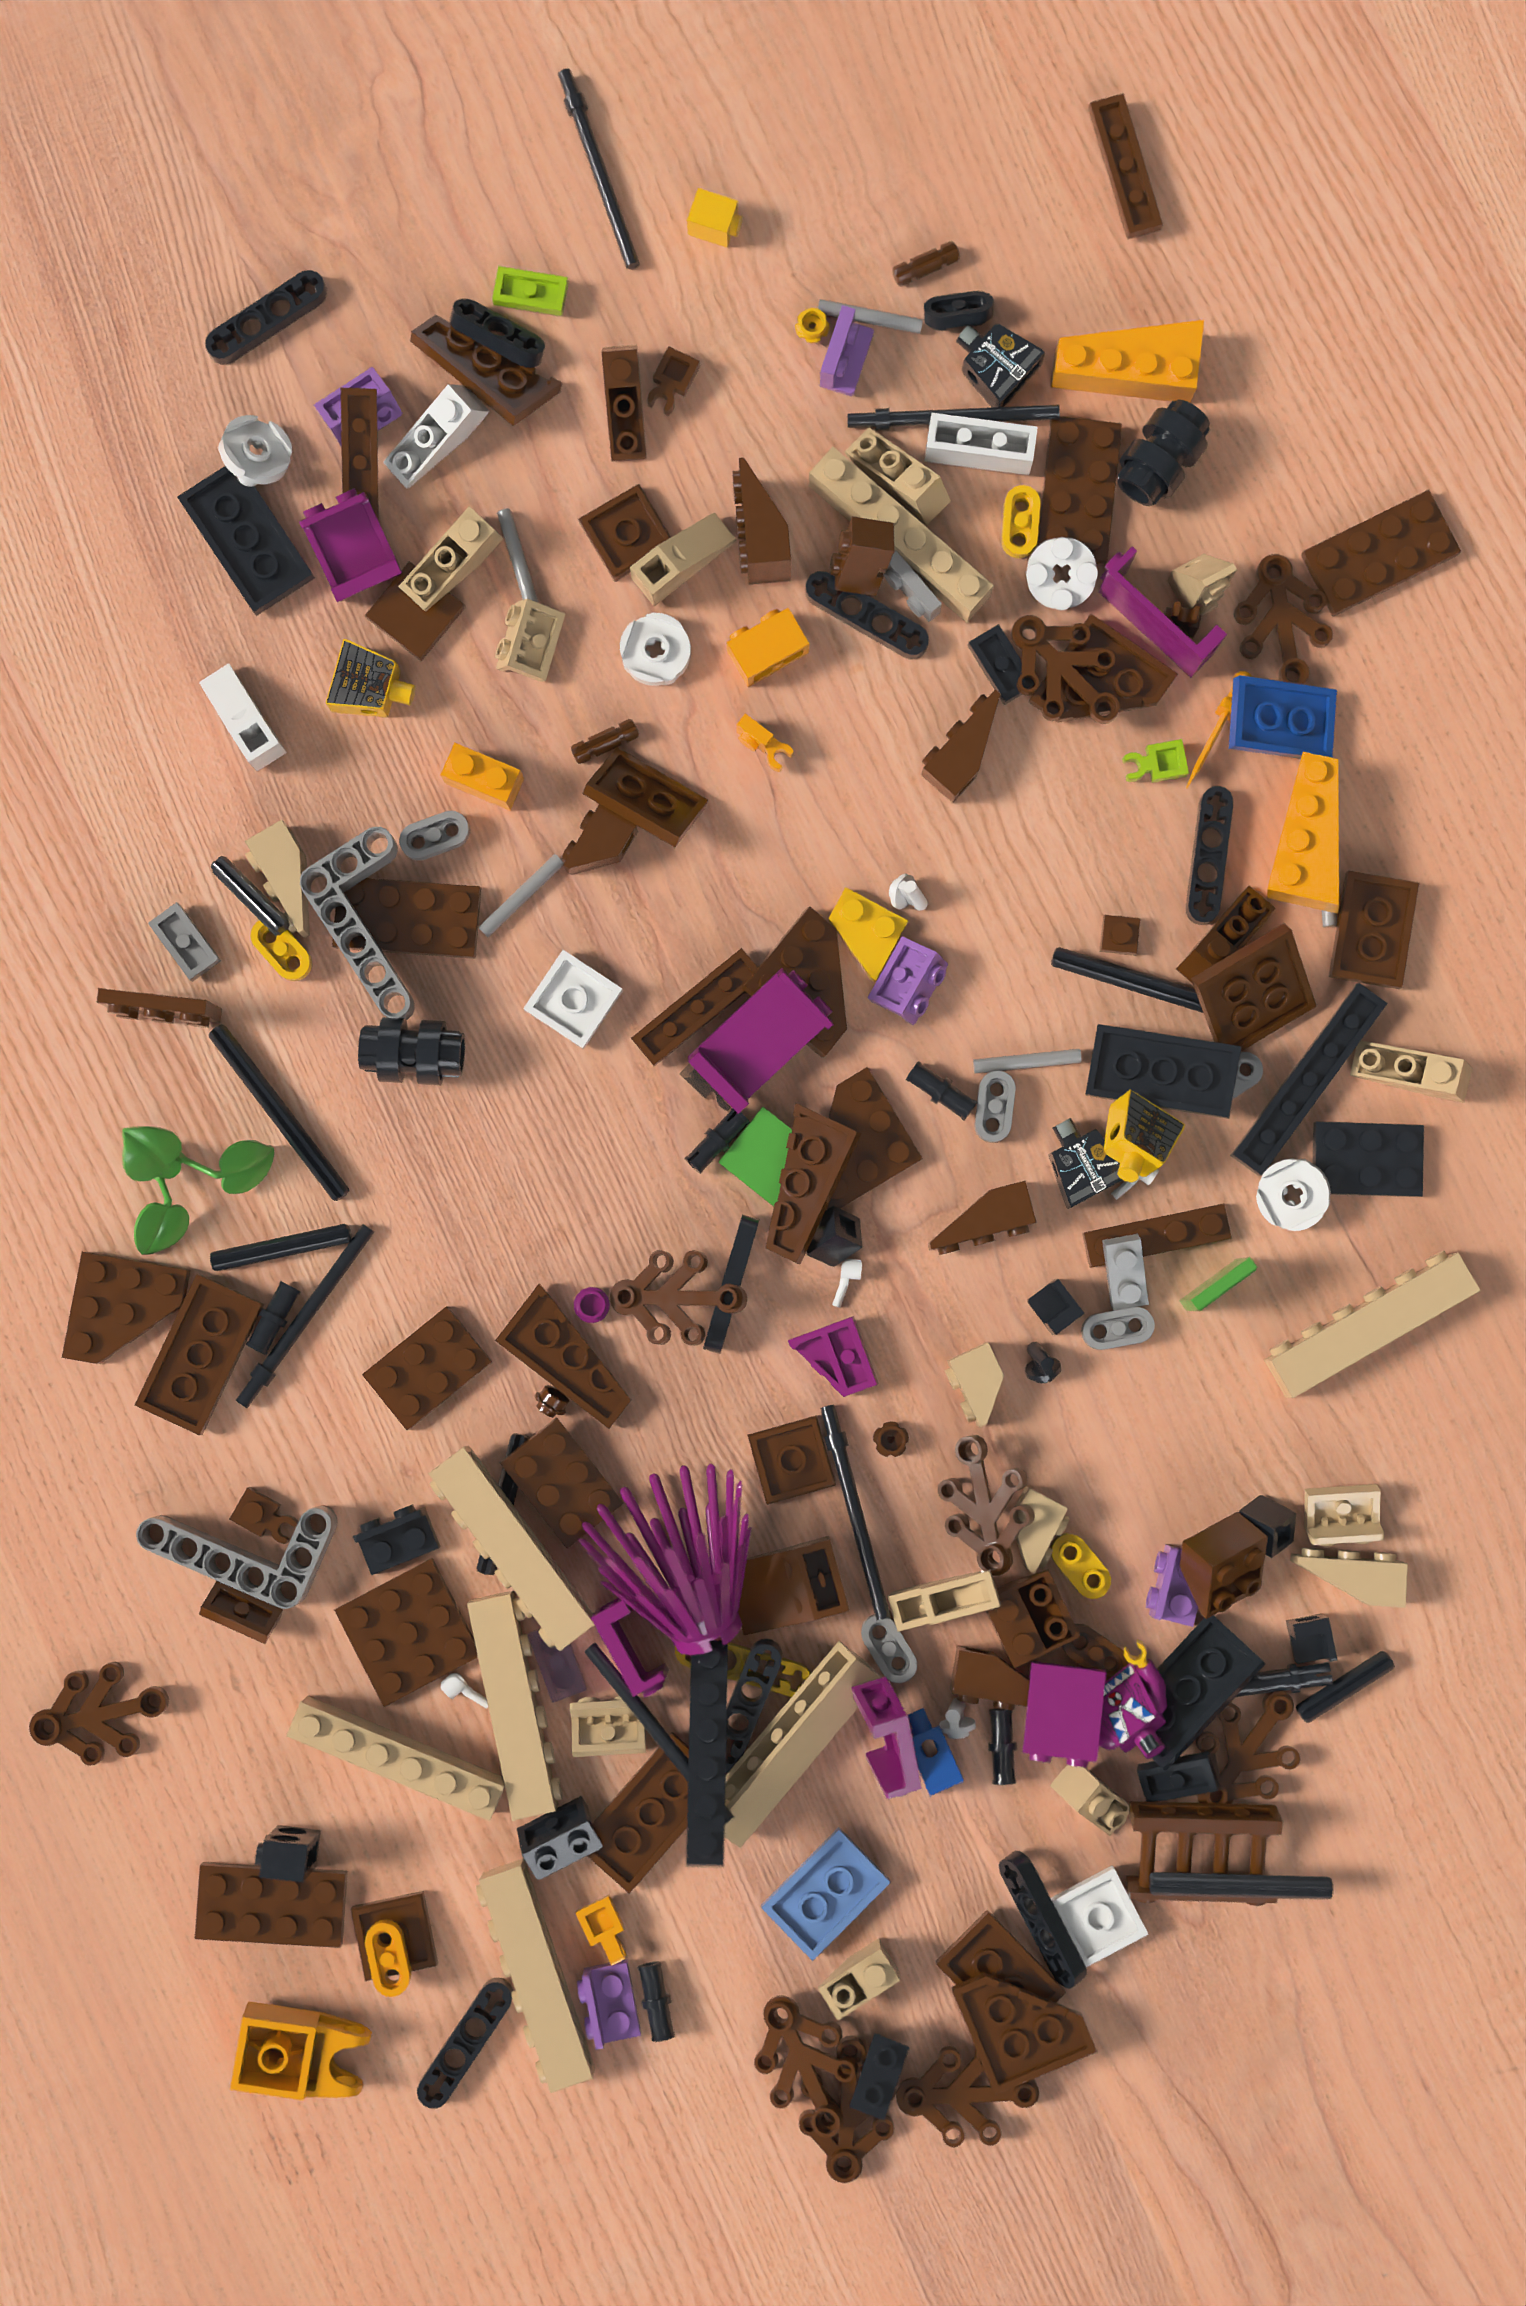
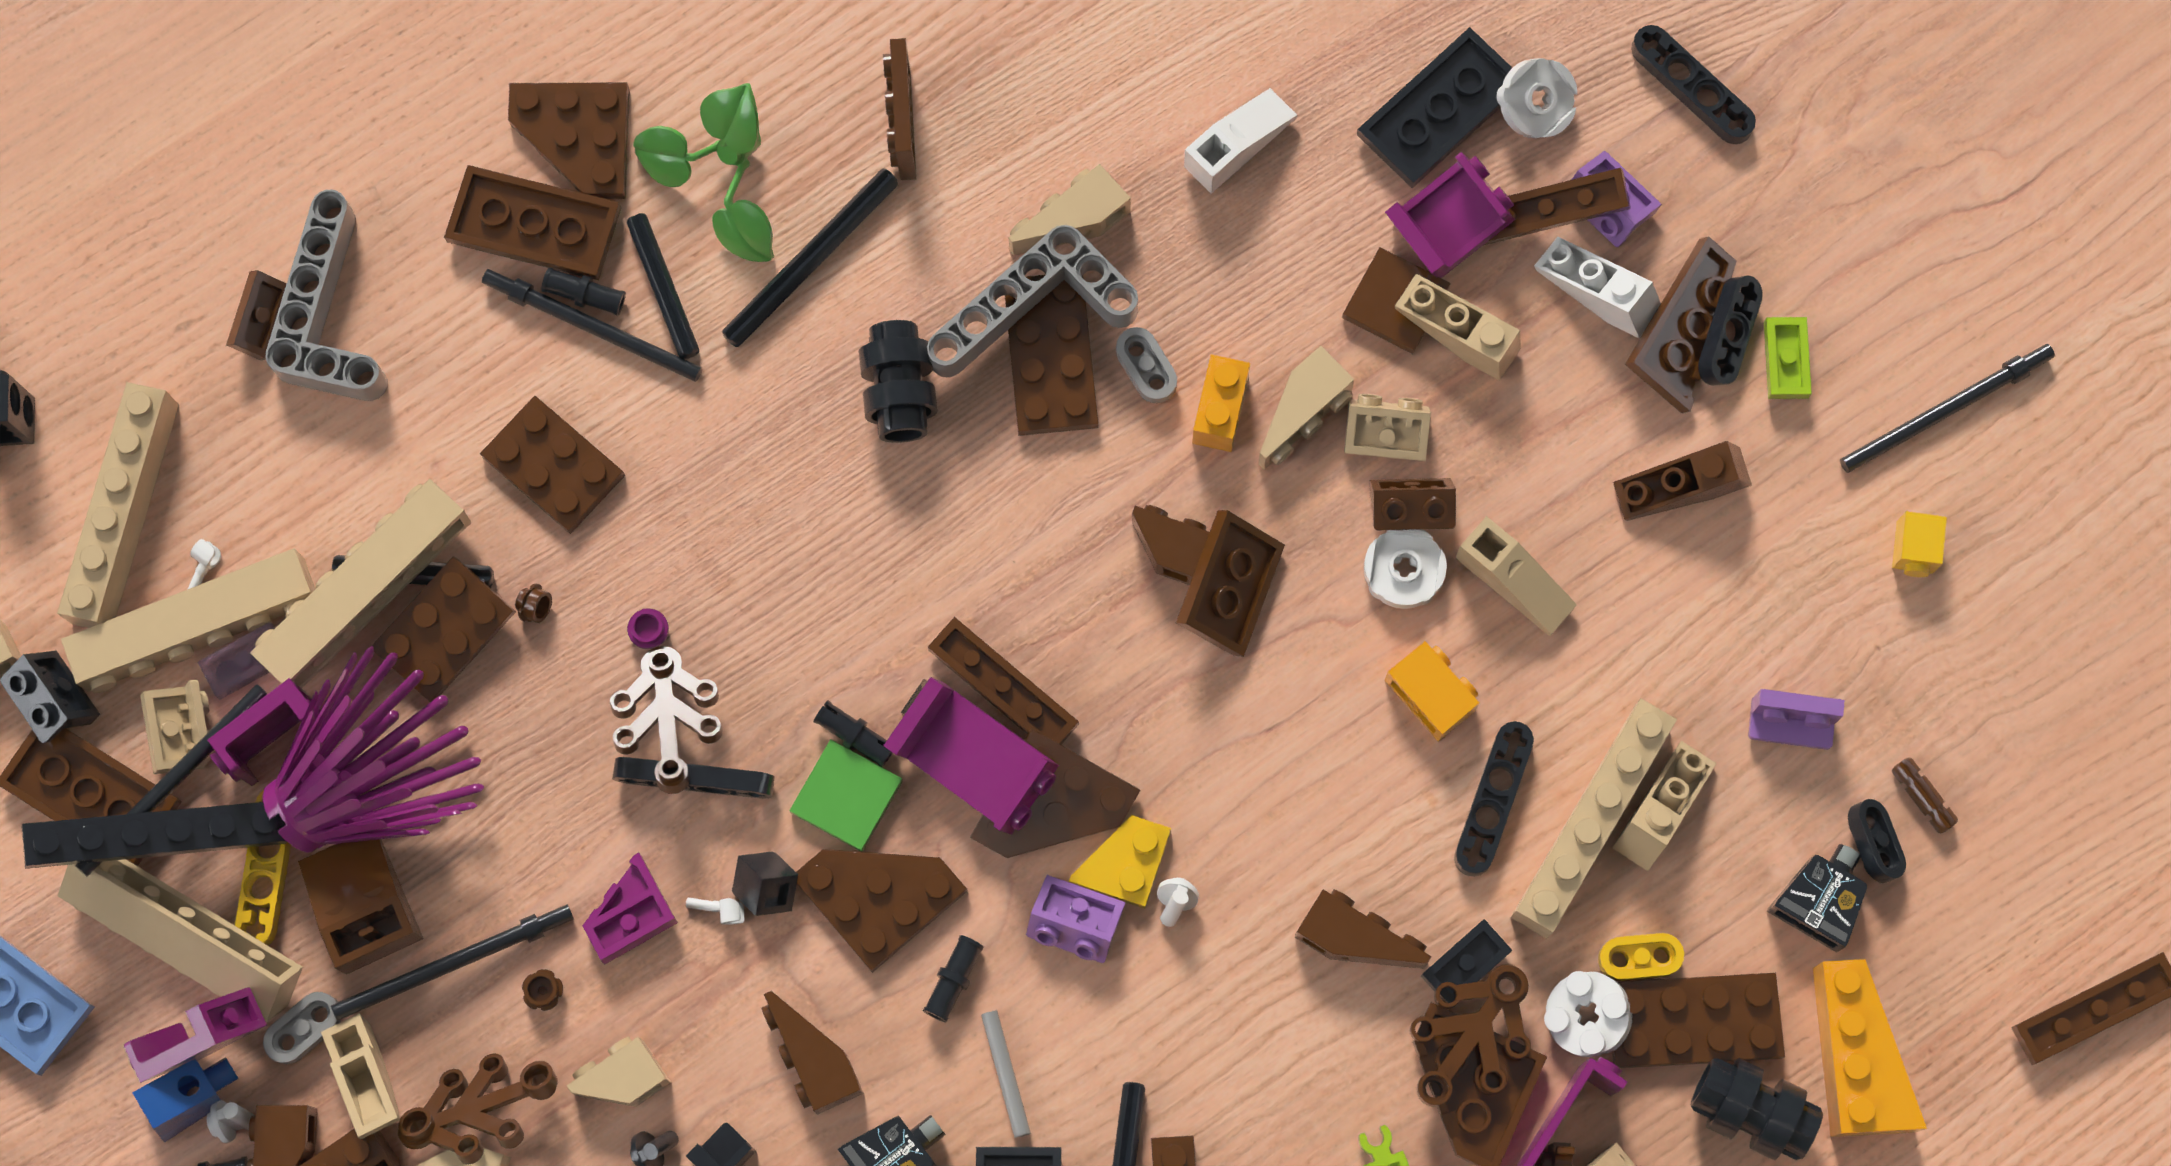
camera: 80 degrees right, 10 degrees down
(92, 1716) = (130, 185): reddish brown plant -> none
(184, 942) = (980, 125): light grey plate -> none
(250, 895) = (1042, 182): black axle -> none
(258, 1514) = (367, 316): reddish brown plate -> none
(281, 952) = (989, 228): yellow plate -> none
(366, 683) = (1303, 261): torso -> none
(397, 1540) = (358, 466): black bracket -> none
(407, 1632) = (259, 494): reddish brown plate -> none
(488, 702) = (1310, 393): none -> tan slope
(516, 554) = (1480, 399): light grey bar -> none
(521, 895) = (1096, 470): light grey bar -> none
(557, 1352) = (586, 603): reddish brown wing -> none
(573, 999) = (988, 547): white plate -> none
(601, 629) = (1413, 504): none -> reddish brown bracket
(604, 741) = (1289, 530): reddish brown axle -> none
(624, 530) = (1536, 510): reddish brown tile -> none
(674, 376) = (1726, 532): reddish brown plate -> none
(751, 1706) = (217, 877): black beam -> none
(756, 736) = (1325, 695): light orange plate -> none
(766, 533) = (1550, 662): reddish brown slope -> none
(791, 1459) = (504, 882): reddish brown tile -> none
(810, 316) = (1823, 667): yellow plate -> none
(811, 1173) = (836, 845): reddish brown wing -> none
(861, 554) = (1555, 774): reddish brown brick -> none
(874, 316) = (1847, 744): light grey bar -> none
(883, 418) = (1729, 779): black bar -> none
(920, 597) = (1545, 828): light grey plate -> none
(980, 444) = (1720, 891): white brick -> none
(995, 1107) = (945, 1042): light grey plate -> none

